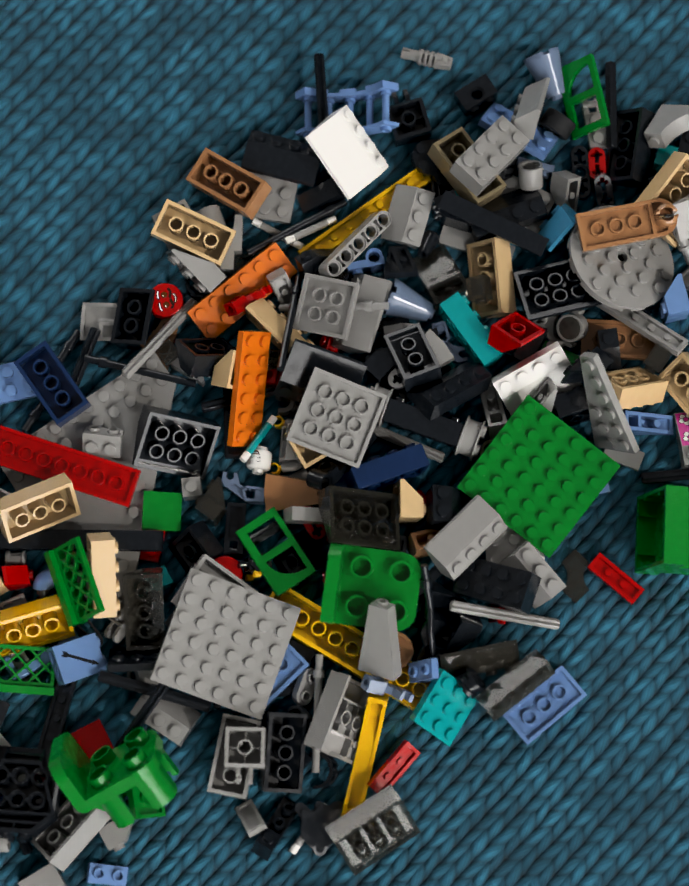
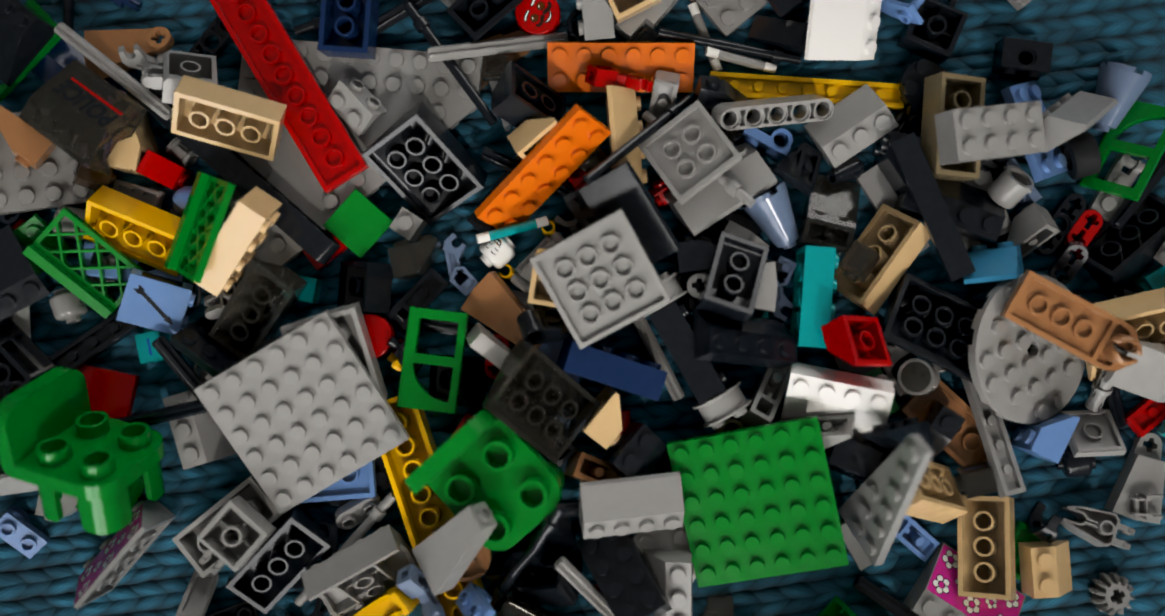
camera: 40 degrees right, 10 degrees up
(21, 709) = (67, 306): none -> light grey head
(95, 690) = (146, 351): none -> teal brick
(180, 827) = (121, 551): none -> light grey slope

